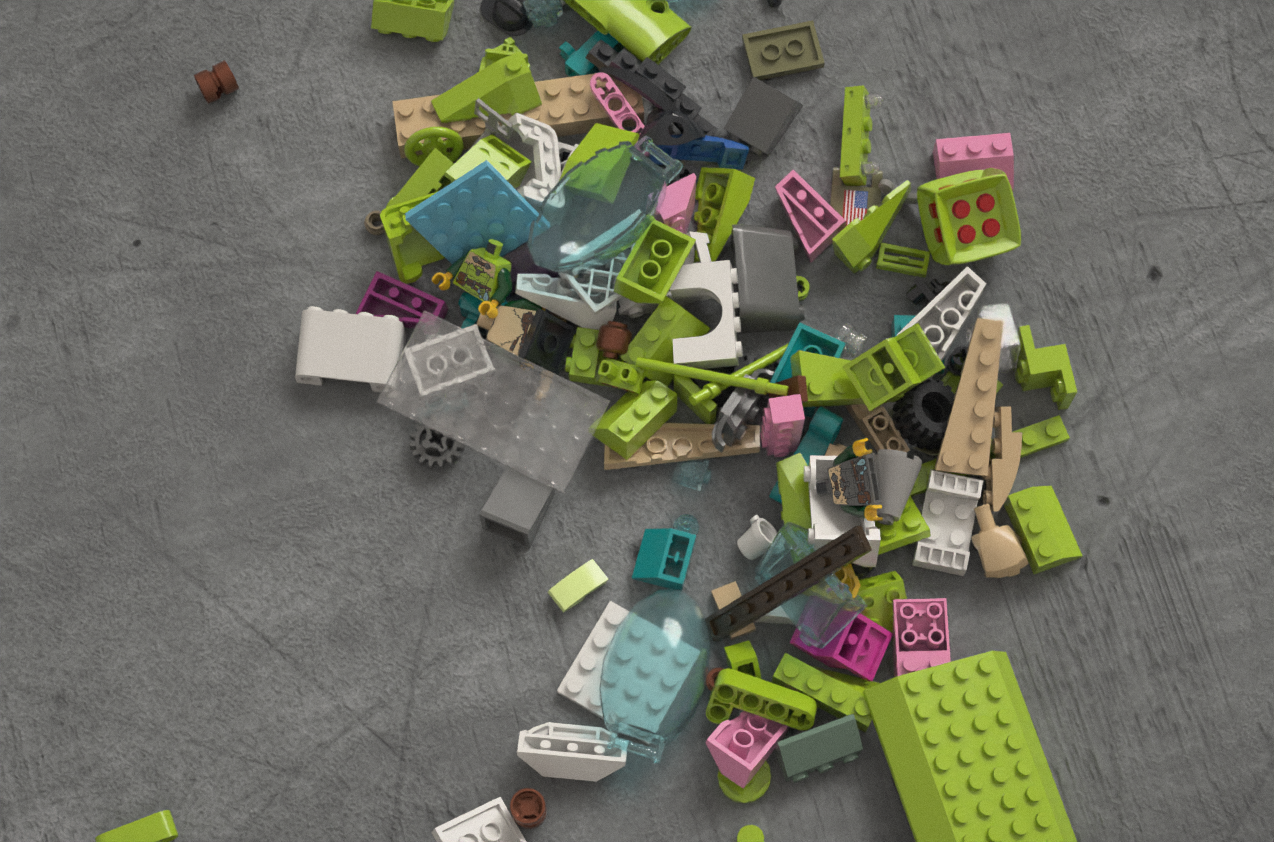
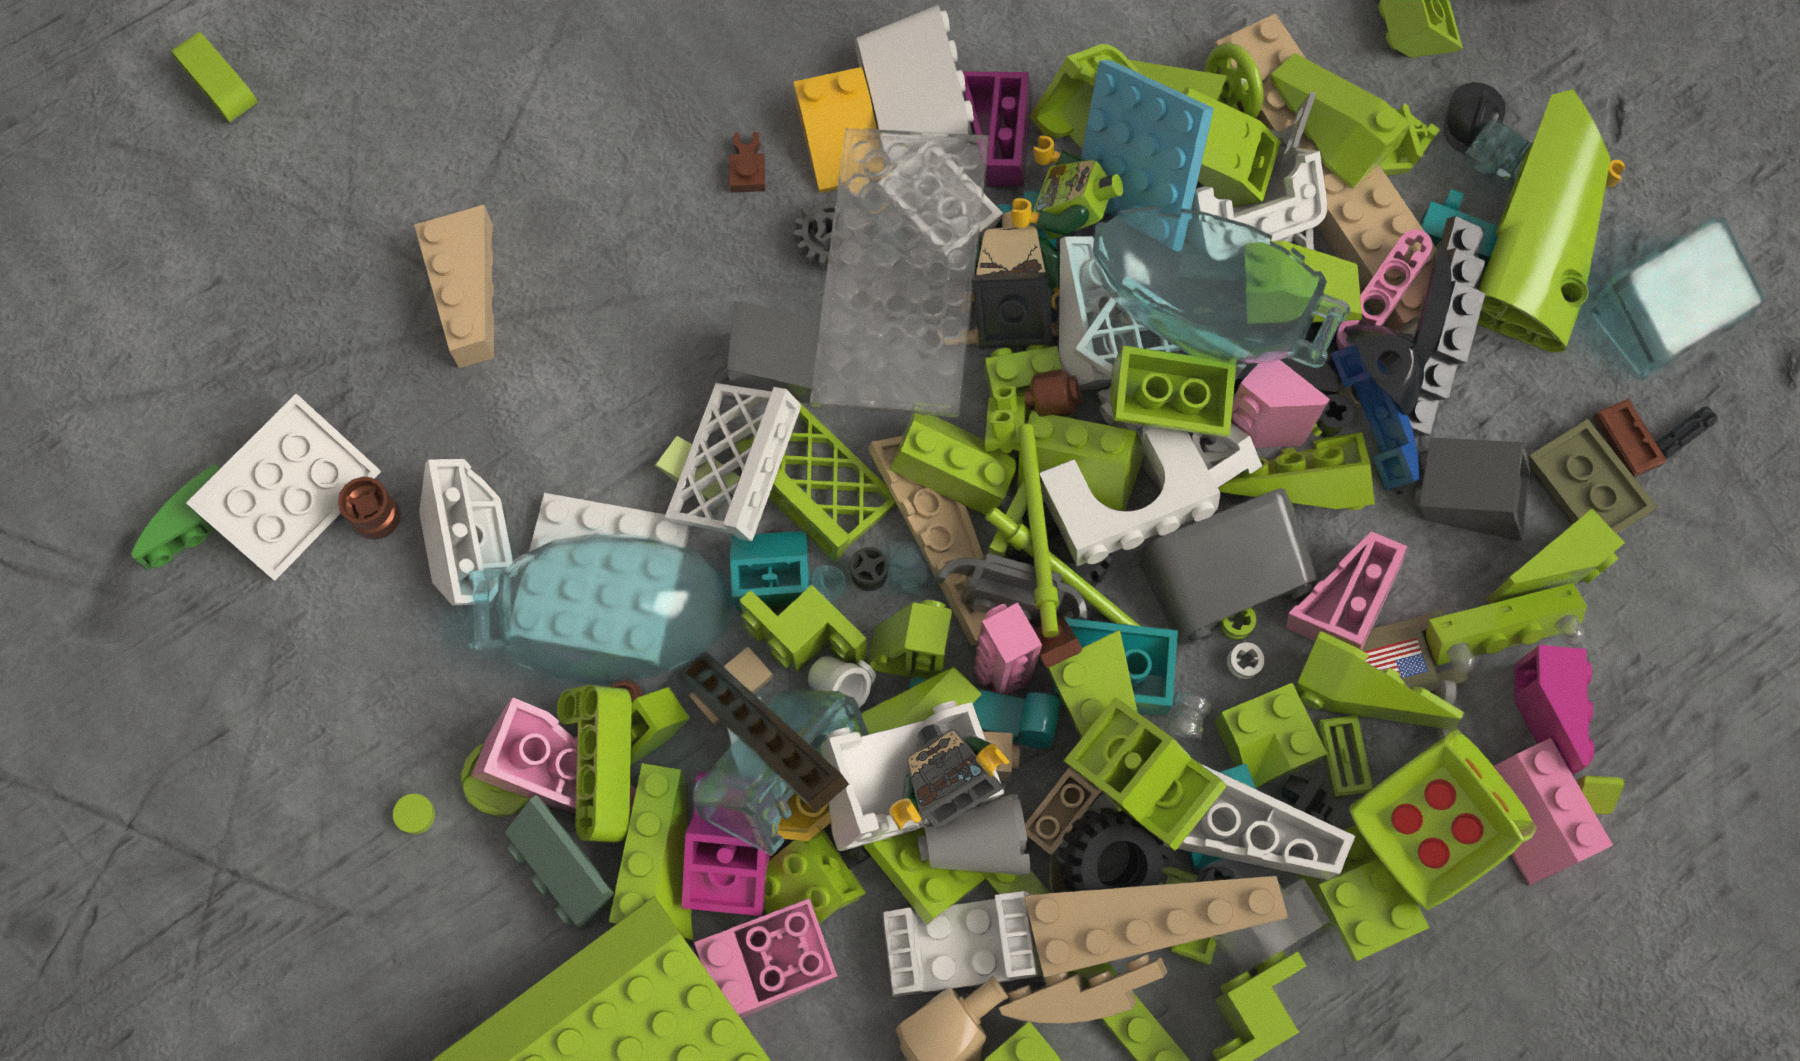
camera: 70 degrees right, 0 degrees up
(353, 412) = (825, 109): none -> yellow slope
(361, 484) = (747, 166): none -> copper plate
(378, 701) = (460, 273): none -> tan wedge
(600, 538) = (757, 463): none -> white fence
(615, 531) = (813, 517): none -> lime fence
(685, 492) = (866, 561): none -> pearl dark grey wheel
(717, 549) = (803, 629): none -> lime bracket
(751, 483) = (912, 641): none -> lime wedge
(761, 16) = (1629, 438): none -> copper plate
(826, 286) = (1242, 649): none -> white bush
(827, 81) = (1575, 555): none -> lime slope
(878, 295) = (1271, 735): none -> lime slope
(915, 128) = (1555, 701): none -> dark pink slope
(974, 126) = (1601, 792): none -> lime slope
(1005, 278) = (1366, 902): none -> lime bracket

